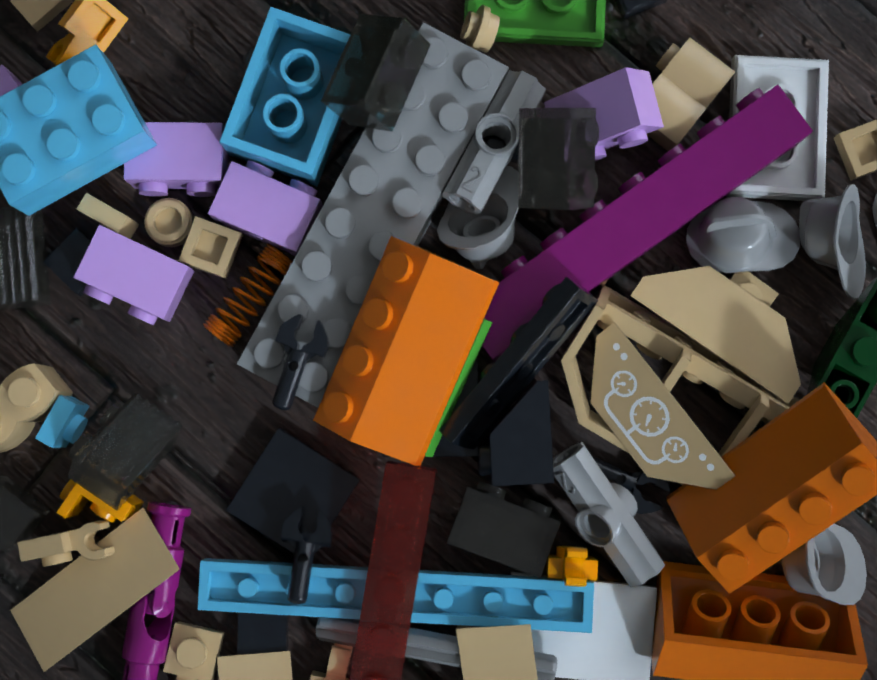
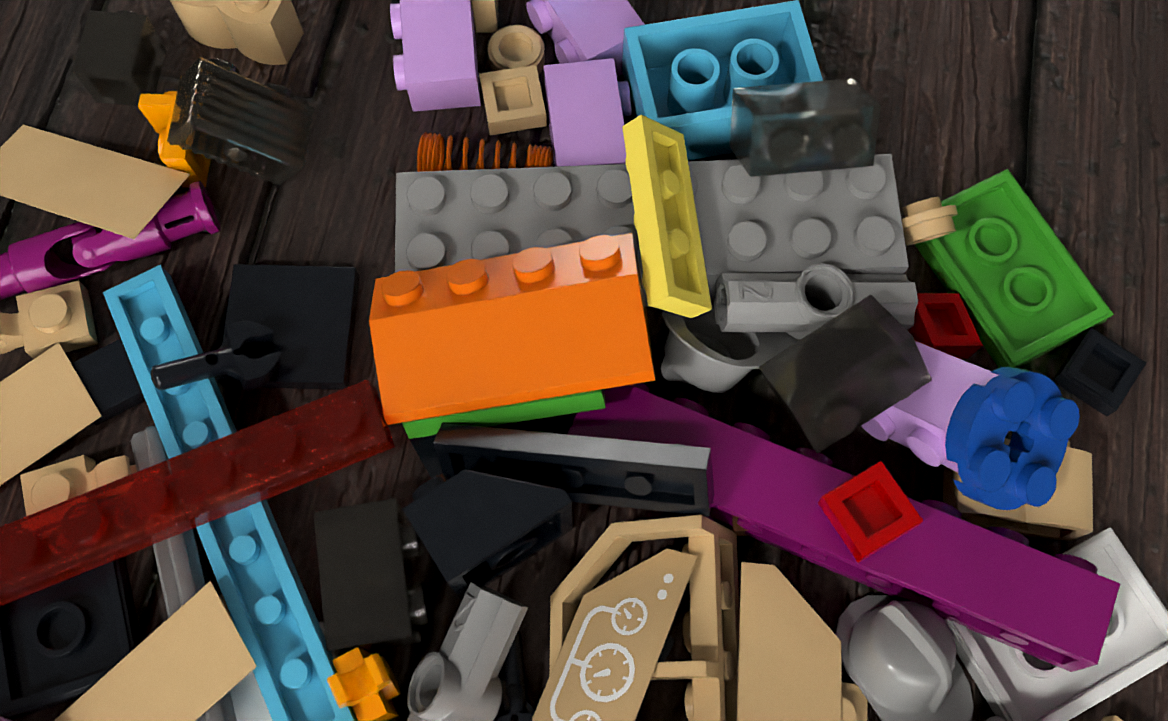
camera: 60 degrees right, 15 degrees down
(57, 547) = (110, 125): tan plate -> none
(64, 422) = (250, 53): medium azure plate -> none
(296, 358) = (438, 219): black bar -> none
(390, 206) = (666, 218): none -> light yellow plate
(553, 66) = (945, 325): none -> red plate
(654, 203) = (870, 511): none -> red plate
(656, 67) = (1040, 429): none -> blue plate

